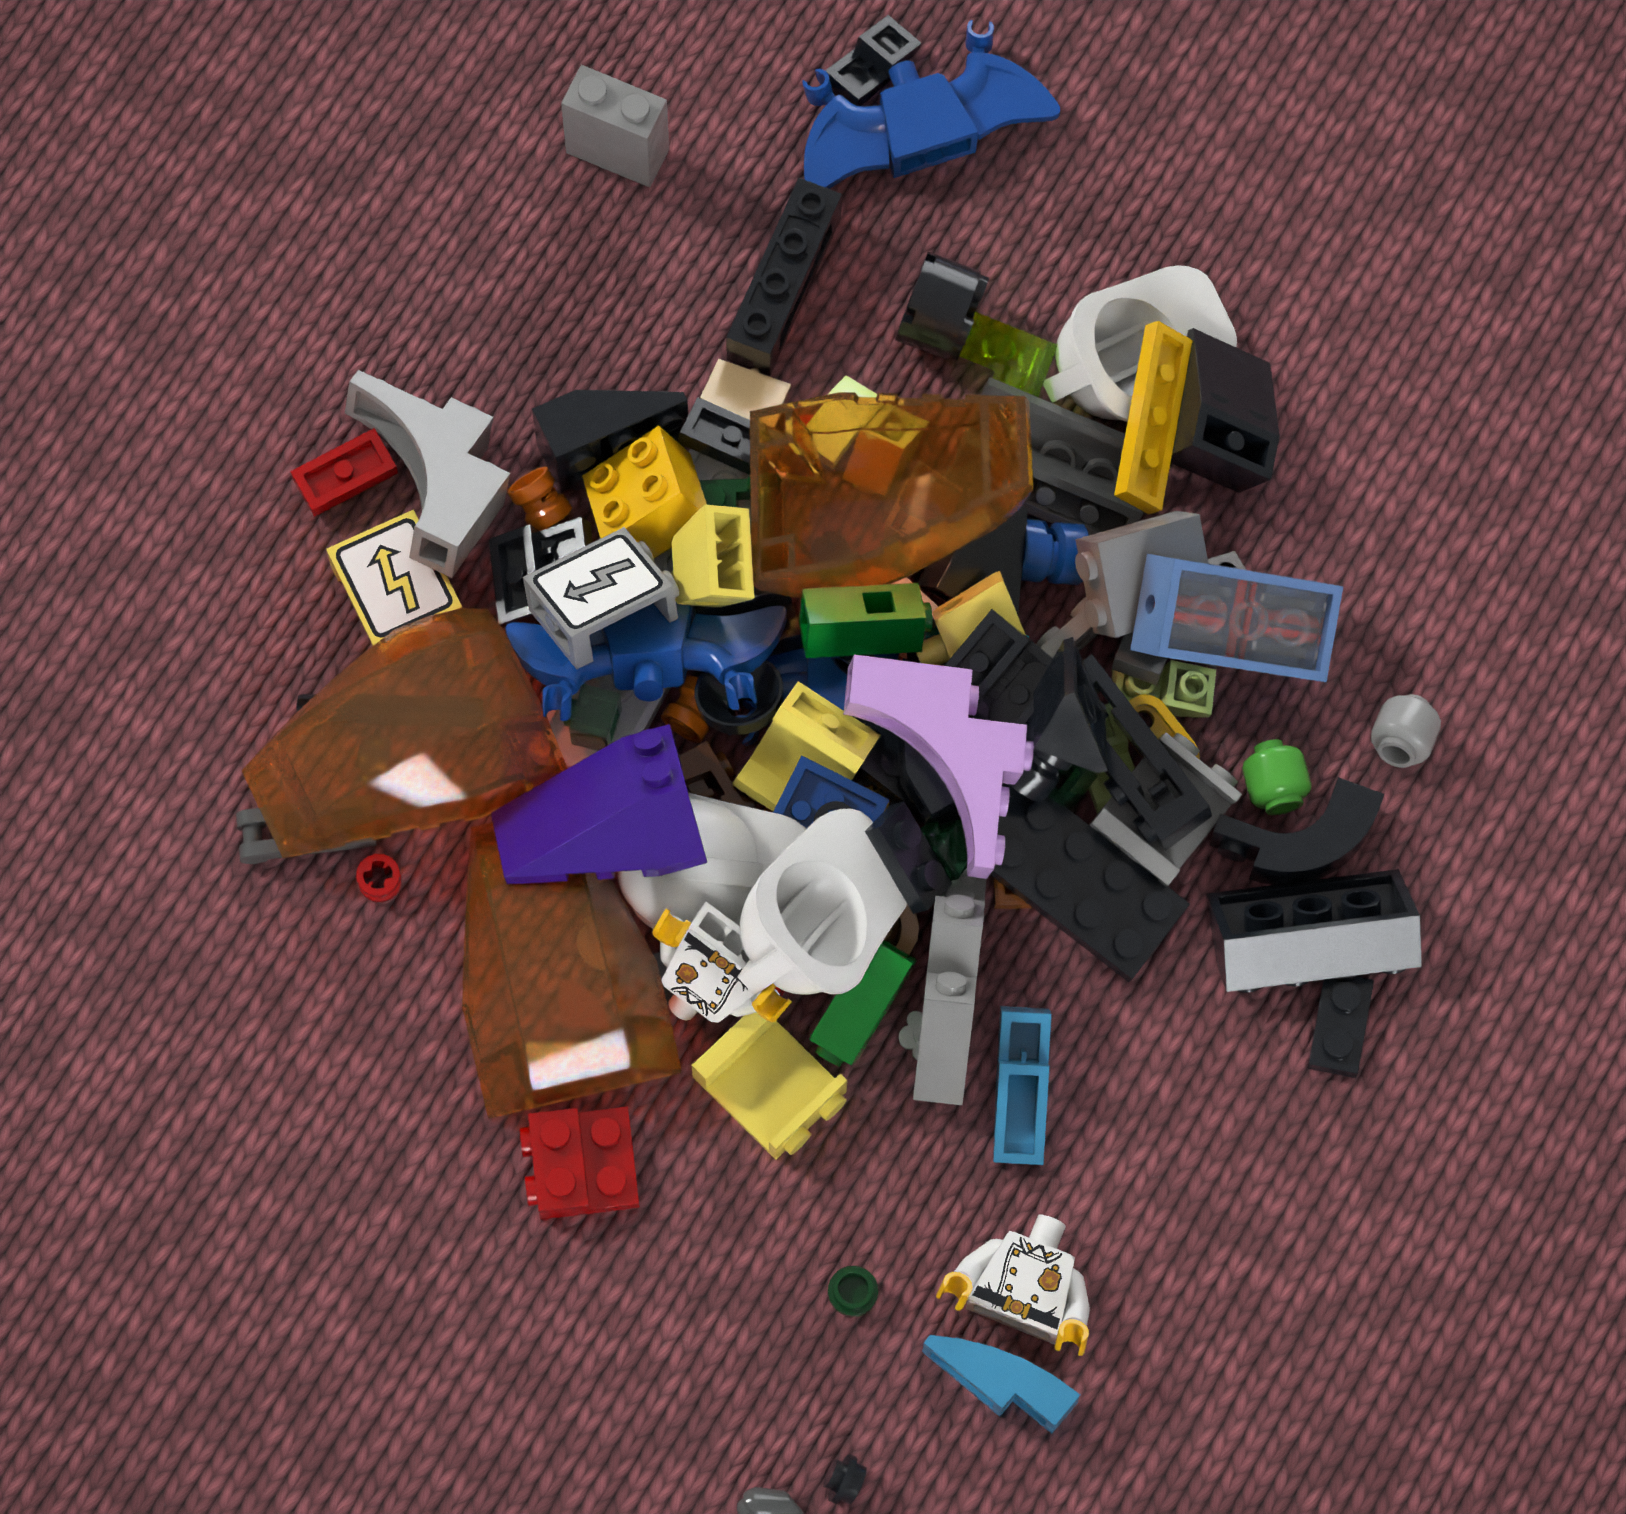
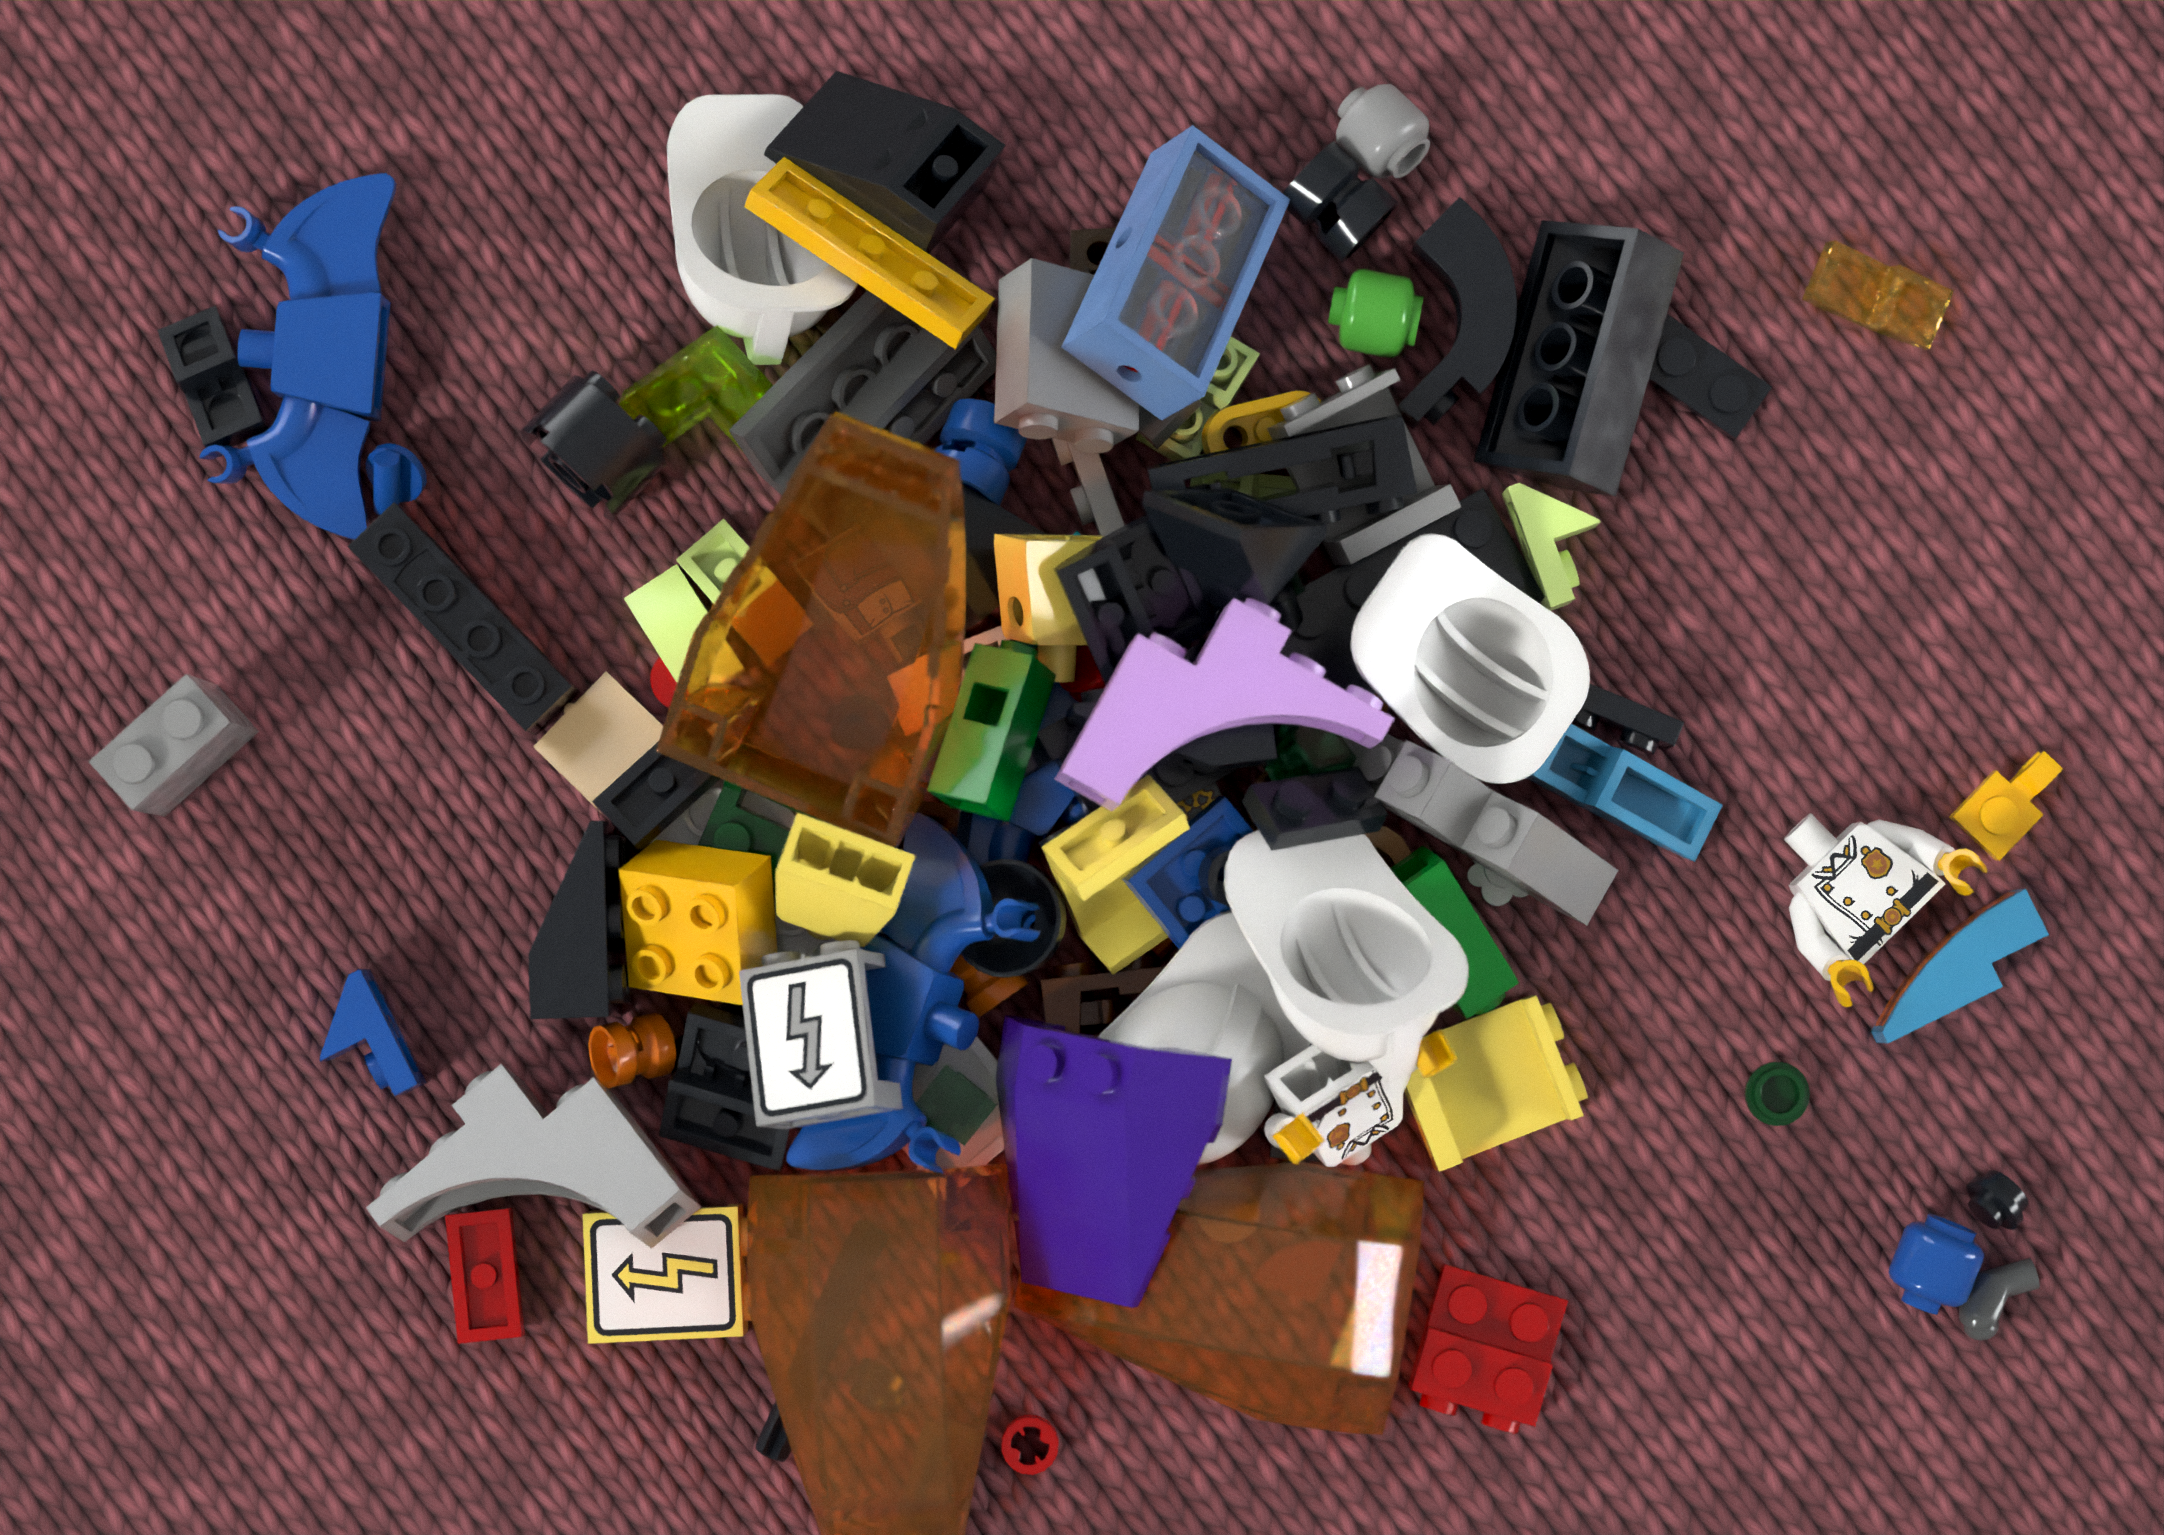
camera: 65 degrees left, 15 degrees up
(484, 327) = (364, 1018): none -> blue slope
(779, 1452) = (1936, 1263): none -> blue head
(861, 196) = (394, 475): none -> blue plate
(1061, 919) = (1470, 661): none -> white piece
(1070, 1038) = (1640, 725): none -> black plate
(1130, 1366) = (2001, 809): none -> yellow plate
(1180, 953) = (1538, 525): none -> yellowish green slope
(1340, 725) = (1338, 201): none -> black wheel
(1459, 1122) = (1877, 295): none -> clear yellow slope

